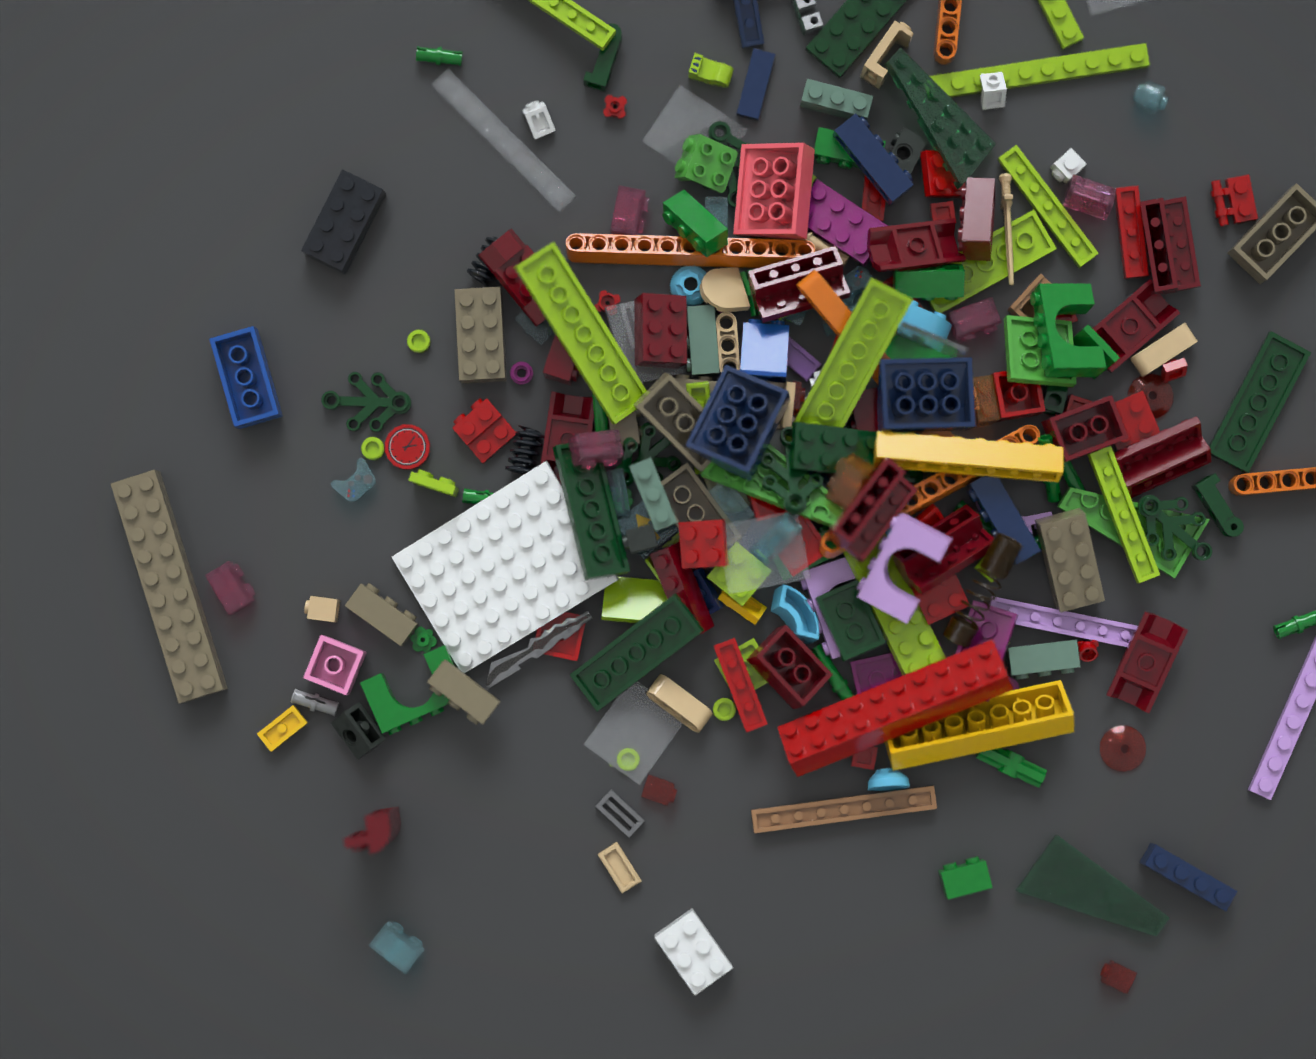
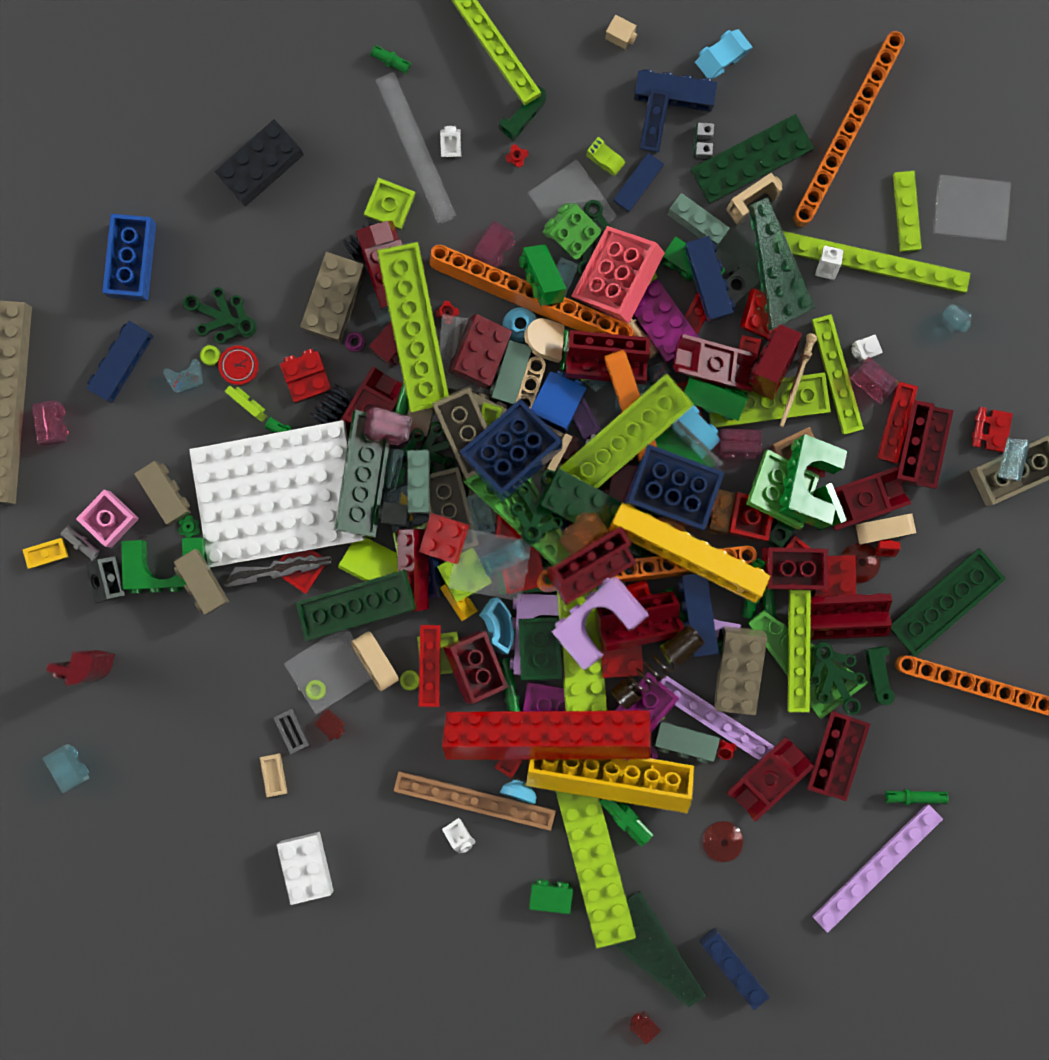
camera: 20 degrees right, 0 degrees up
(280, 492) = (120, 361): none -> dark blue brick
(322, 609) = (116, 469): tan brick -> none
(418, 341) = (282, 283): lime tile -> none
(499, 210) = (389, 203): none -> lime plate
(842, 853) = (458, 836): none -> white bracket
(1001, 829) = (596, 869): none -> lime plate
(1209, 609) = (838, 756): none -> dark red brick
(1269, 223) = (1014, 459): none -> clear light blue plate

